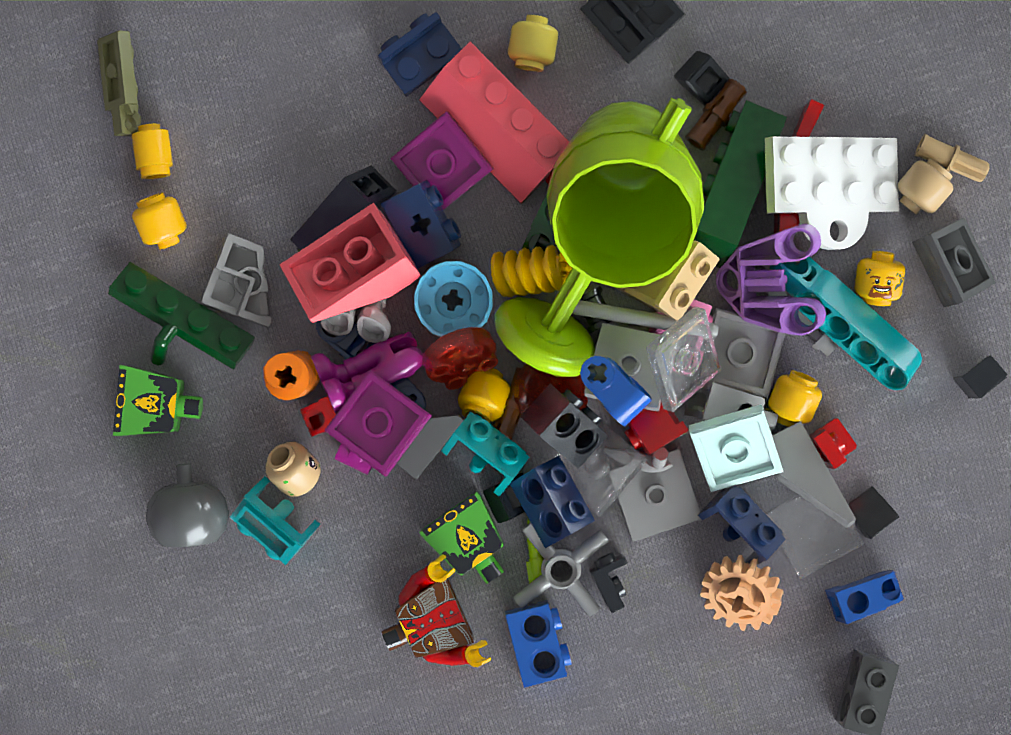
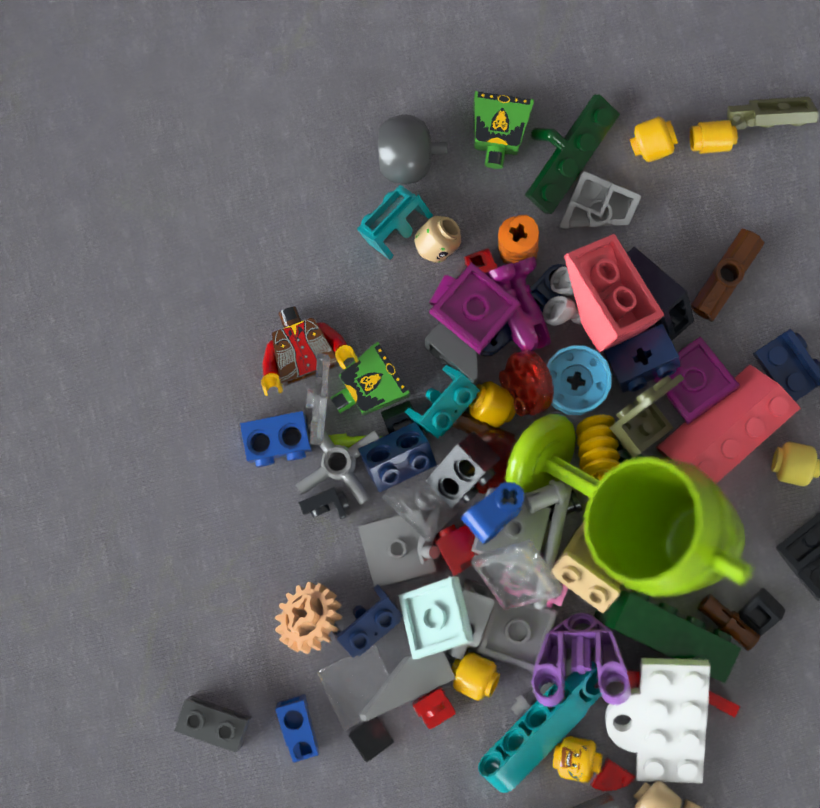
camera: 100 degrees right, 5 degrees down
(297, 117) = (736, 259): none -> reddish brown piece
(491, 599) = (318, 399): none -> clear plate
(497, 217) = (644, 423): none -> olive bracket
(590, 329) = (546, 496): none -> light grey pin
(895, 238) = (612, 777): none -> red tile

